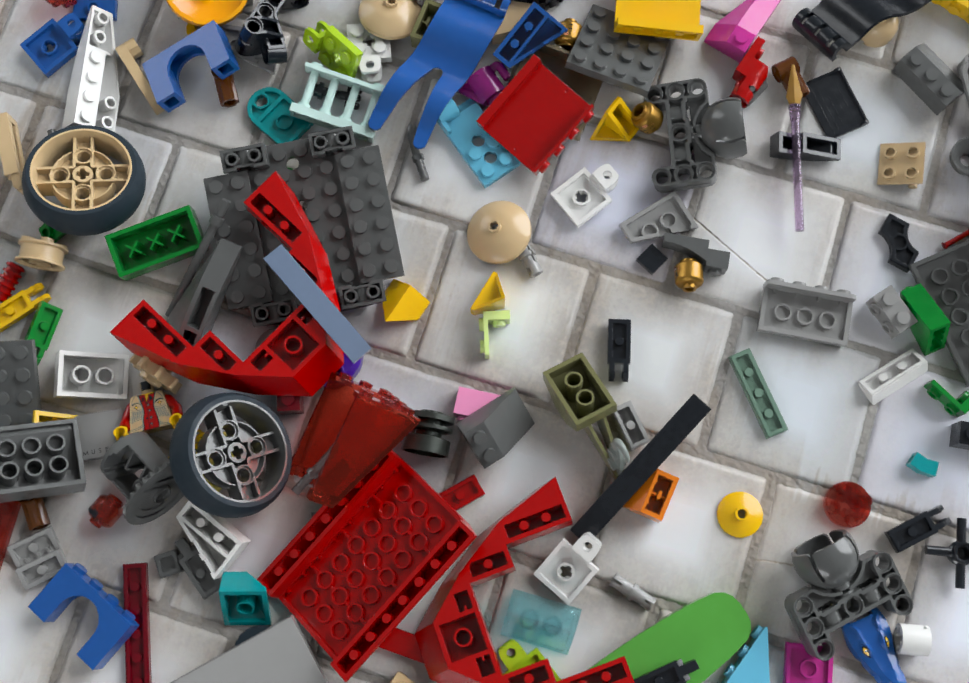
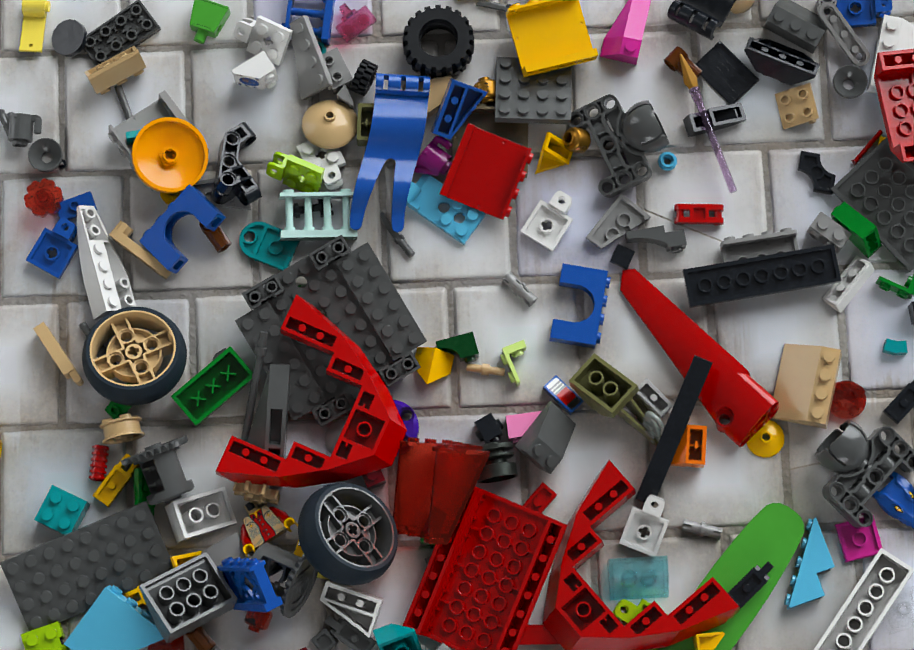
camera: 20 degrees left, 0 degrees up
(63, 312) = (162, 471): none -> dark grey piece
(100, 471) = (262, 596): none -> blue fence
(312, 473) = (415, 526): dark grey piece -> none
(317, 304) = (371, 389): sand blue tile -> none
(436, 394) = (488, 429): none -> black brick
(441, 293) = (462, 346): none -> dark green arch
(457, 328) = (485, 369): none -> tan bar
(490, 297) = (504, 333): yellow slope -> none
(506, 240) = (499, 284): tan dish -> none
(532, 386) = (562, 394): none -> slope
(609, 276) = (594, 284): none -> blue arch
(619, 347) = (621, 338): black hinge -> none
(689, 274) = (657, 259): pearl gold head -> none
(720, 442) = (729, 388): none -> red panel
(737, 168) = (667, 155): none -> medium azure plate
(750, 75) = (649, 75): red plate -> none
(752, 242) = (699, 214): none -> red plate
(758, 393) = (745, 336): sand green tile -> none
(800, 333) = (761, 276): none -> black plate
(807, 471) = (806, 384): none -> tan slope
(899, 110) = (780, 61): none -> black wedge

